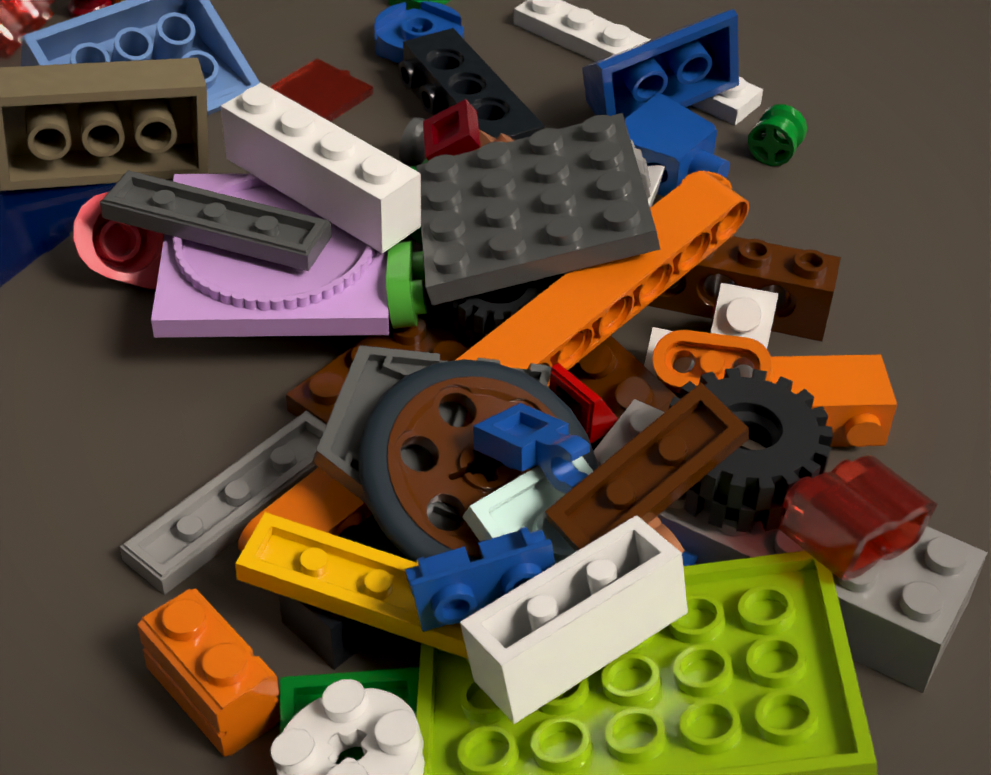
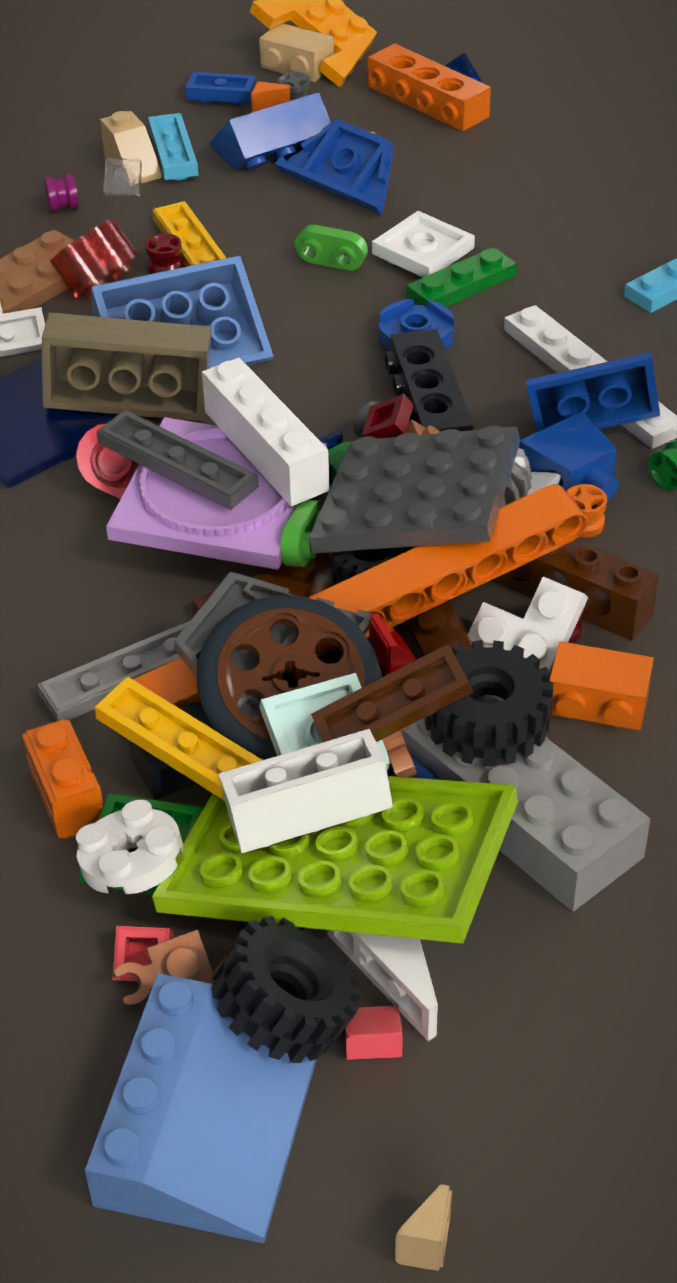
camera: 20 degrees right, 0 degrees up
(324, 89) = (314, 366): clear red piece -> none
(453, 588) = (234, 747): blue hinge -> none
(529, 439) = (321, 662): blue plate -> none
(709, 353) = (513, 631): orange plate -> none
(855, 516) = (543, 766): clear red brick -> none

